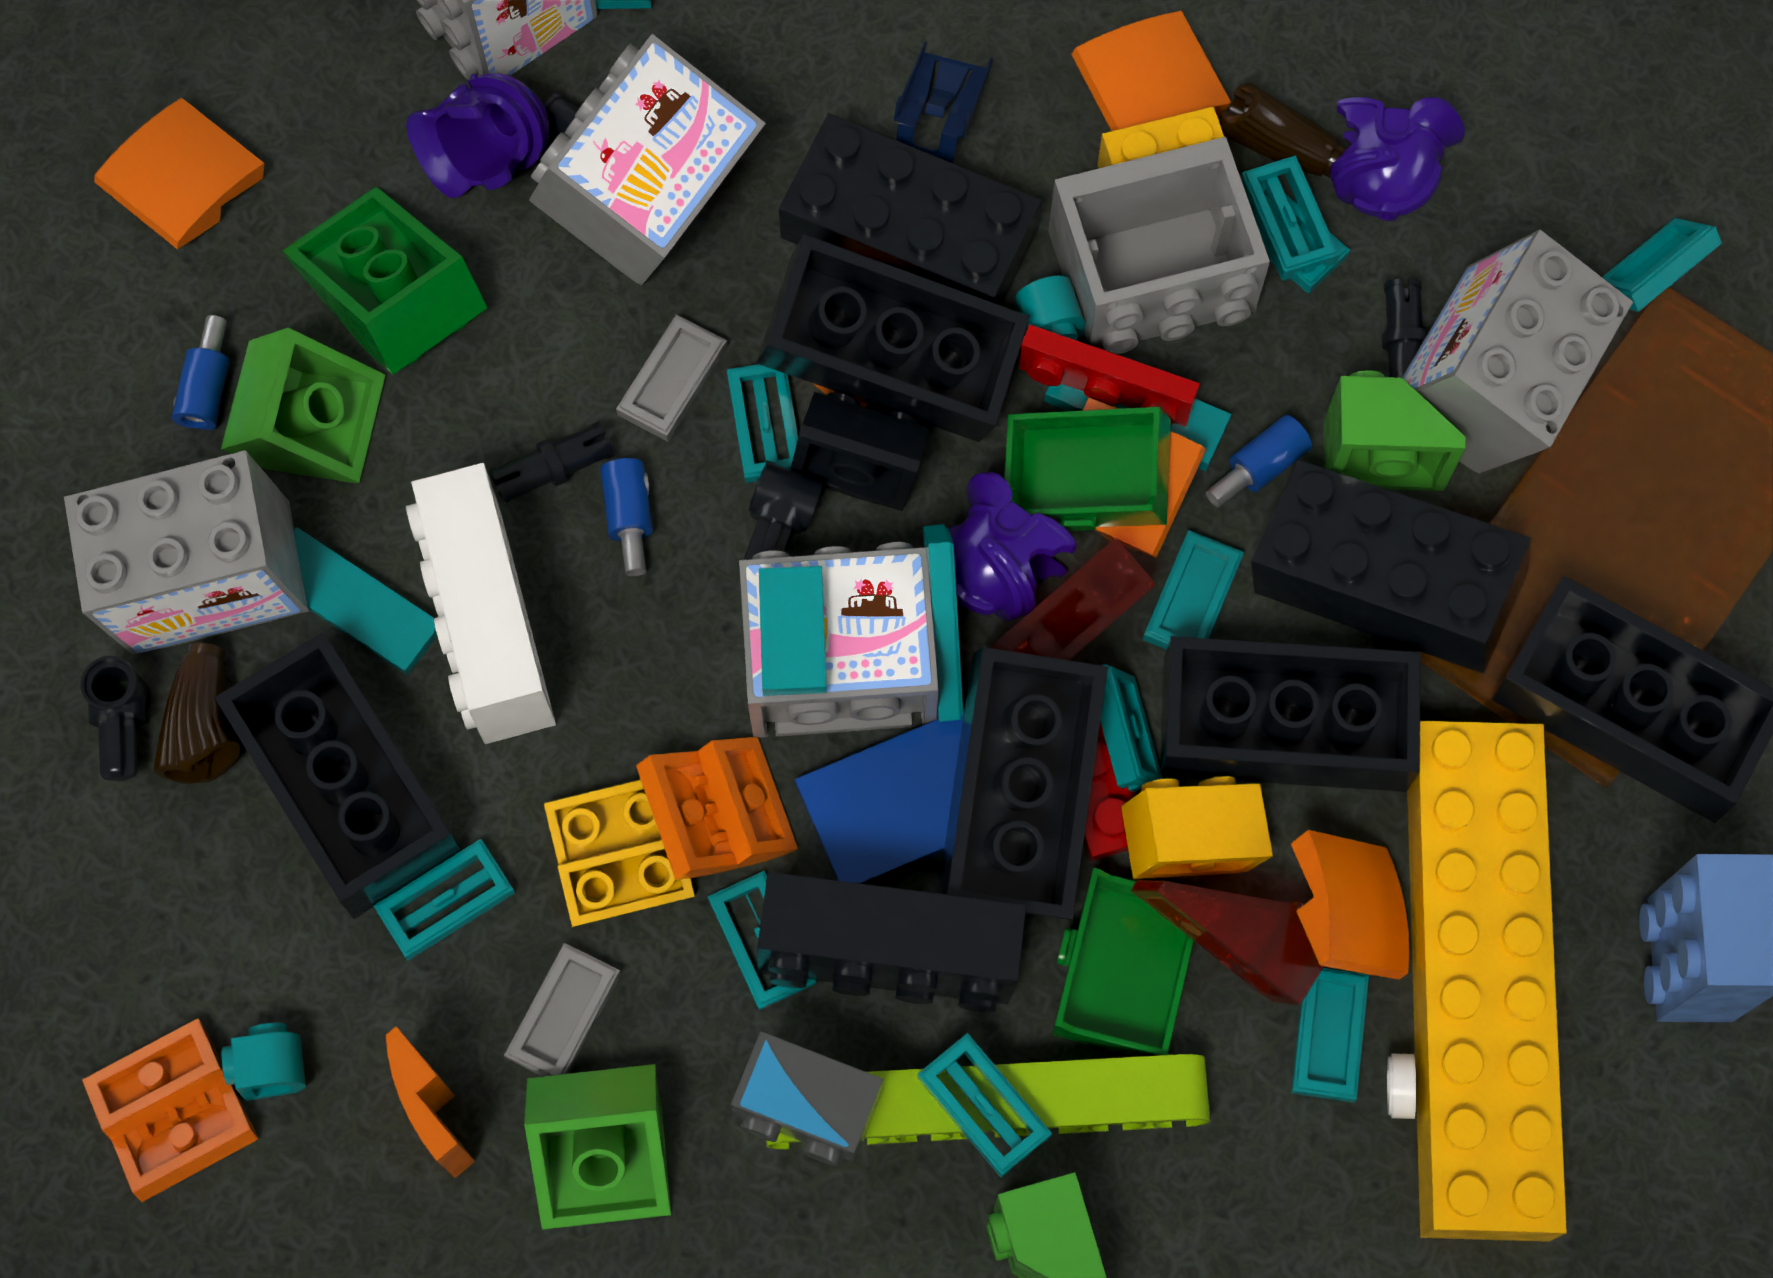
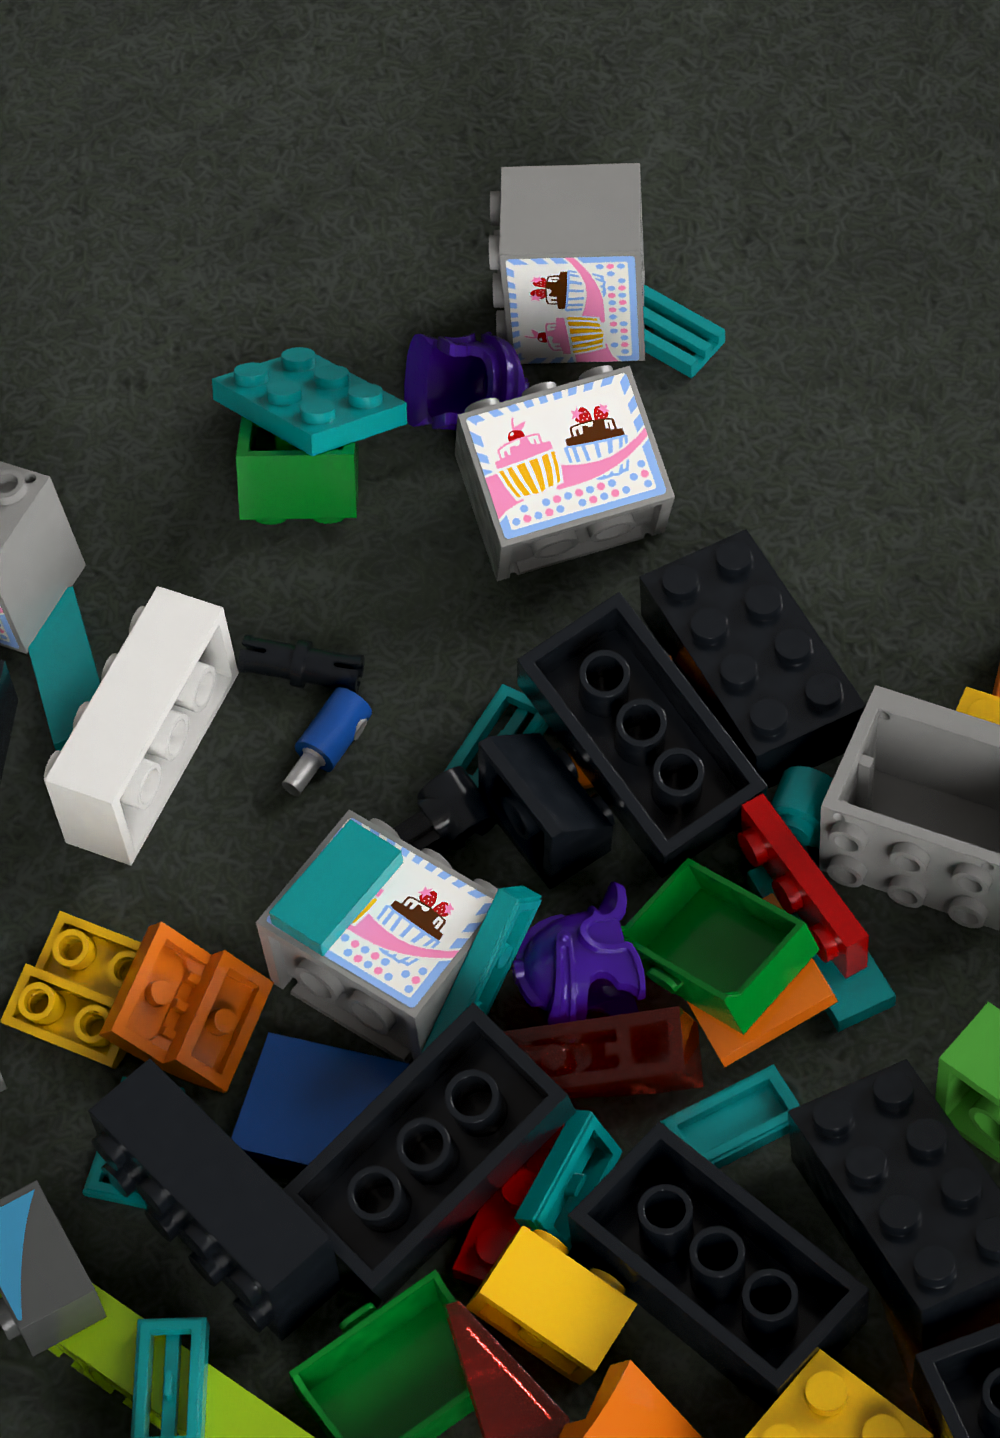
camera: 45 degrees right, 15 degrees down
(179, 173) = (220, 280): orange slope -> none
(203, 379) = (104, 437): blue piece -> none
(303, 408) = (154, 504): bright green slope -> none
(368, 233) = (309, 401): none -> teal plate
(672, 378) = (454, 663): light grey tile -> none
(947, 85) = (887, 584): dark blue piece -> none
(1262, 459) = (887, 1046): blue piece -> none

